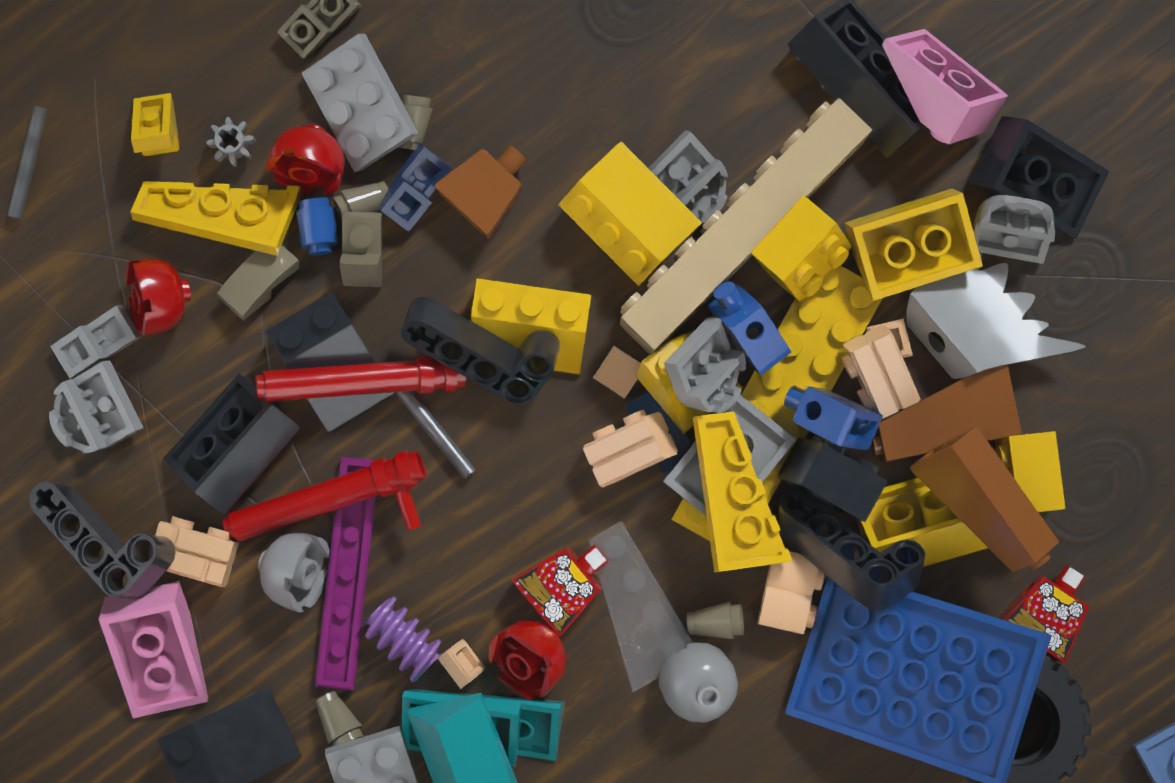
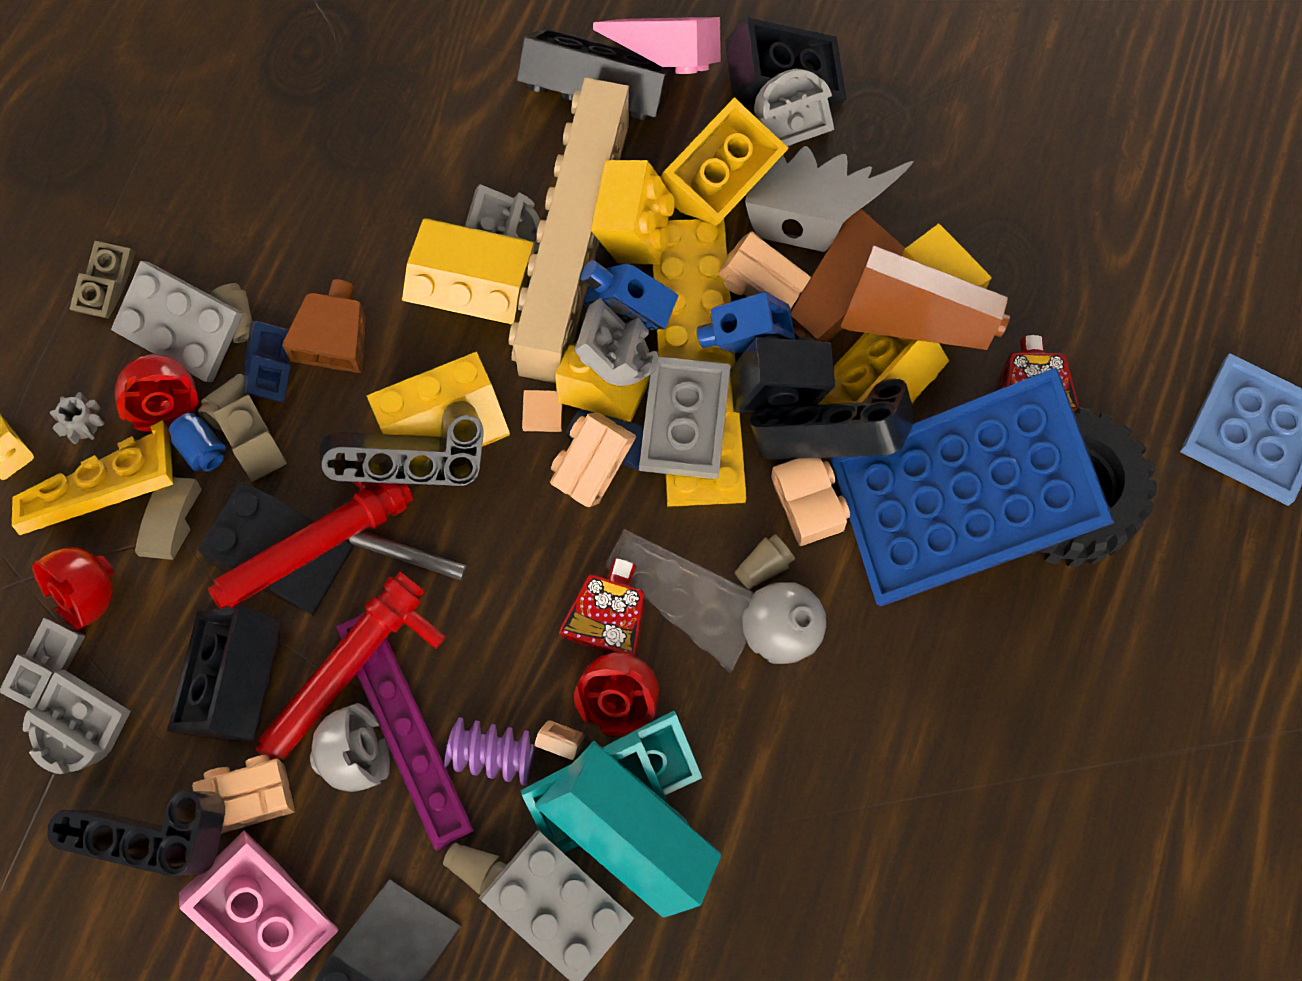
camera: 30 degrees left, 15 degrees down
(736, 510) = (721, 449): yellow wing -> none

